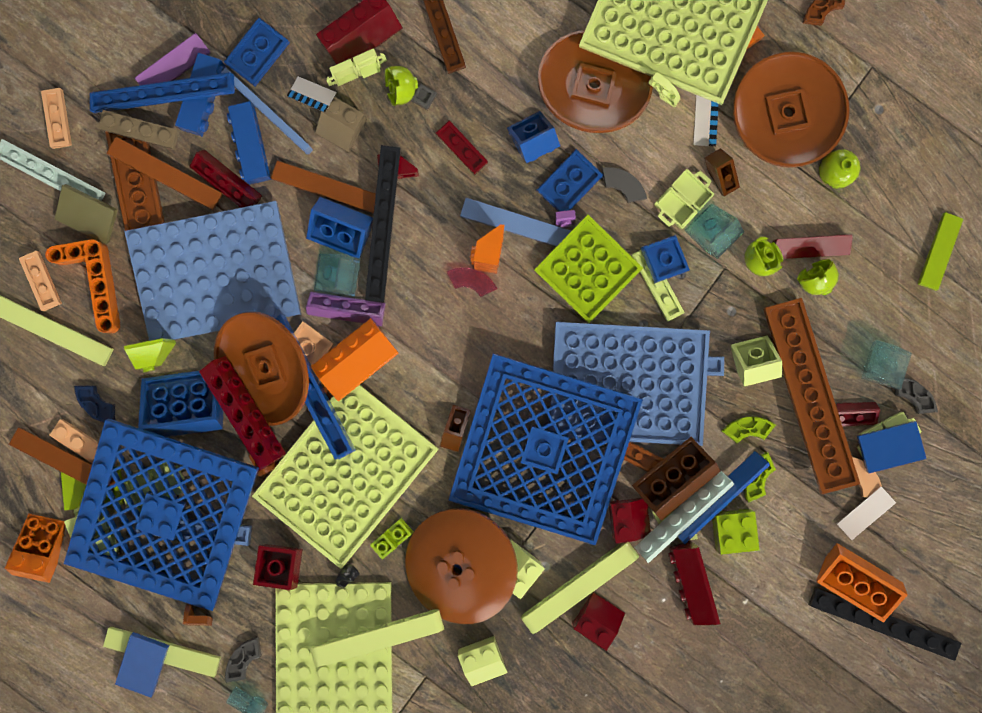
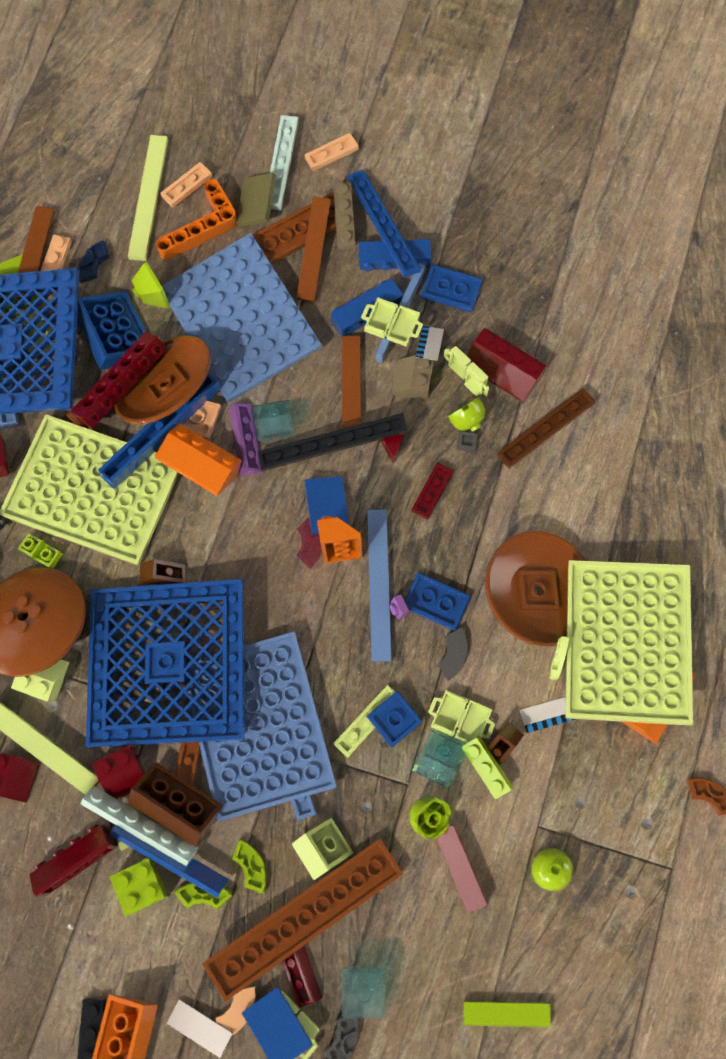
camera: 75 degrees right, 15 degrees down
(174, 62) = (415, 225): medium lavender slope -> none
(224, 179) = (327, 300): dark red slope -> none
(282, 115) = (385, 319): none -> yellowish green piece
(339, 227) = (317, 406): blue slope -> none
(442, 252) = (324, 499): none -> blue tile
(534, 136) = (466, 551): blue slope -> none
(588, 268) = (357, 646): lime plate -> none
(736, 191) = (487, 767): none -> lime plate
(812, 94) = (620, 799): dark orange dish -> none
(820, 278) = (428, 885): lime cylinder -> none

